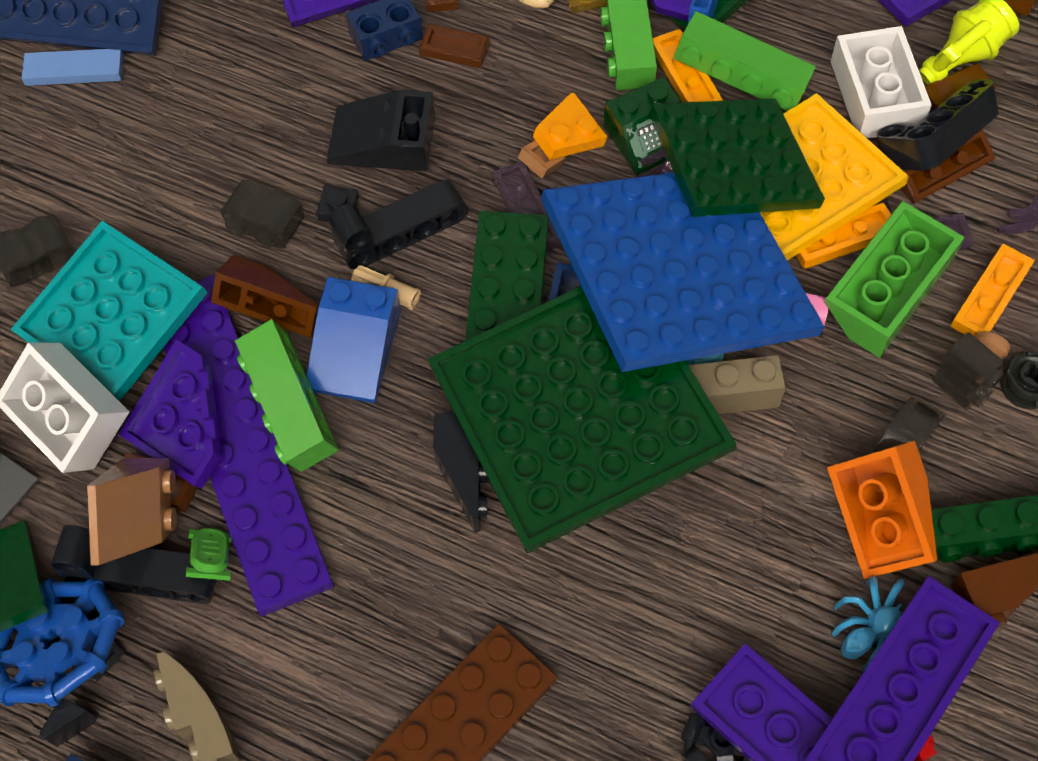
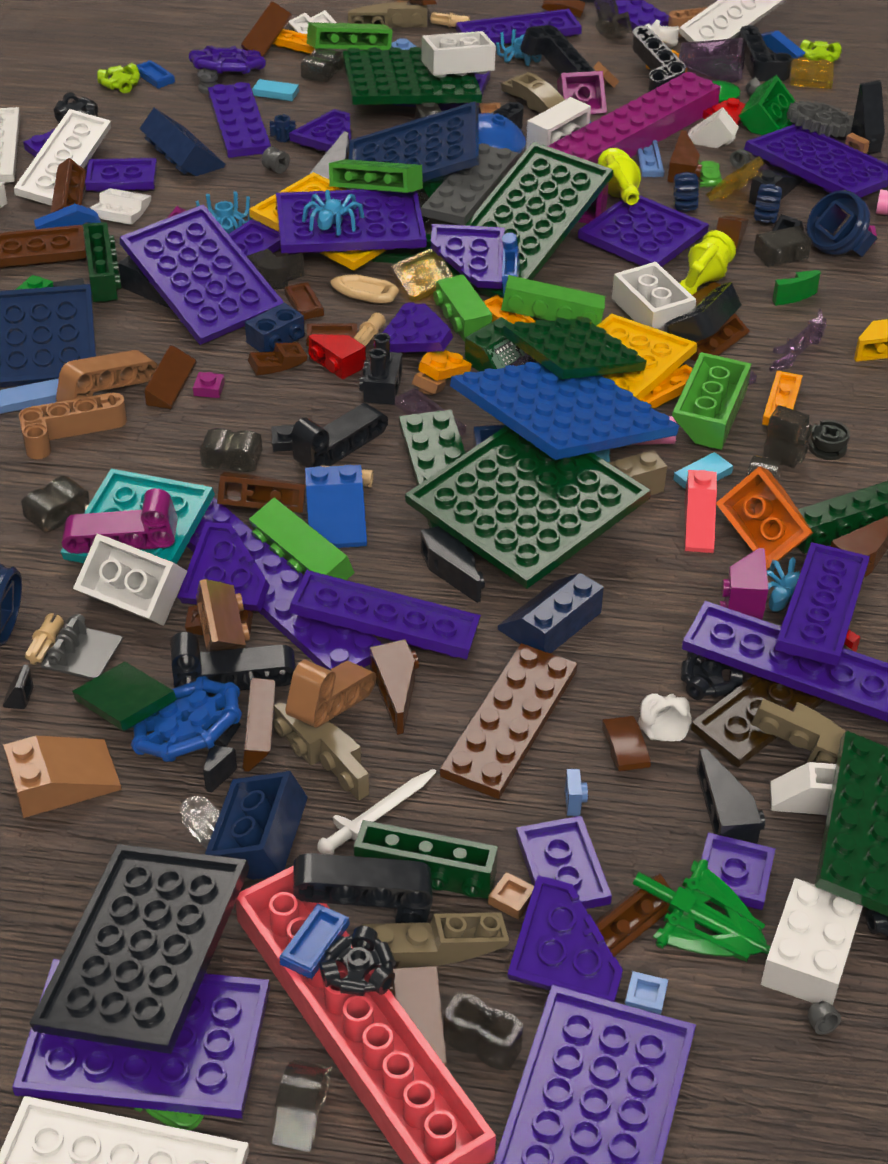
camera: 20 degrees left, 20 degrees down
(90, 117) = (69, 419): none -> medium nougat beam
(101, 331) = (141, 529): none -> magenta beam
(134, 666) = (258, 722): none -> slope
(151, 60) = (104, 372): none -> medium nougat beam
(193, 675) = (323, 693): none -> medium nougat beam
(209, 554) = (286, 643): bright green piece -> none
(234, 76) = (169, 378): none -> reddish brown slope
(278, 96) = (208, 384): none -> magenta plate
(324, 641) = (395, 678): none -> slope
(344, 539) = (385, 614): none -> dark purple plate
(381, 73) = (282, 358): none -> reddish brown slope
(384, 131) = (304, 386): black slope -> none
(449, 81) = (337, 353): none -> red slope
(486, 132) = (381, 372): none -> black brick
(499, 52) = (370, 328): none -> tan axle
(553, 68) = (417, 330): none -> dark purple plate
(556, 585) = (555, 613): none -> dark blue slope
(808, 465) = (700, 511): none -> coral slope
(808, 636) = (747, 585): none -> magenta slope
(840, 392) = (711, 462): none -> medium azure tile

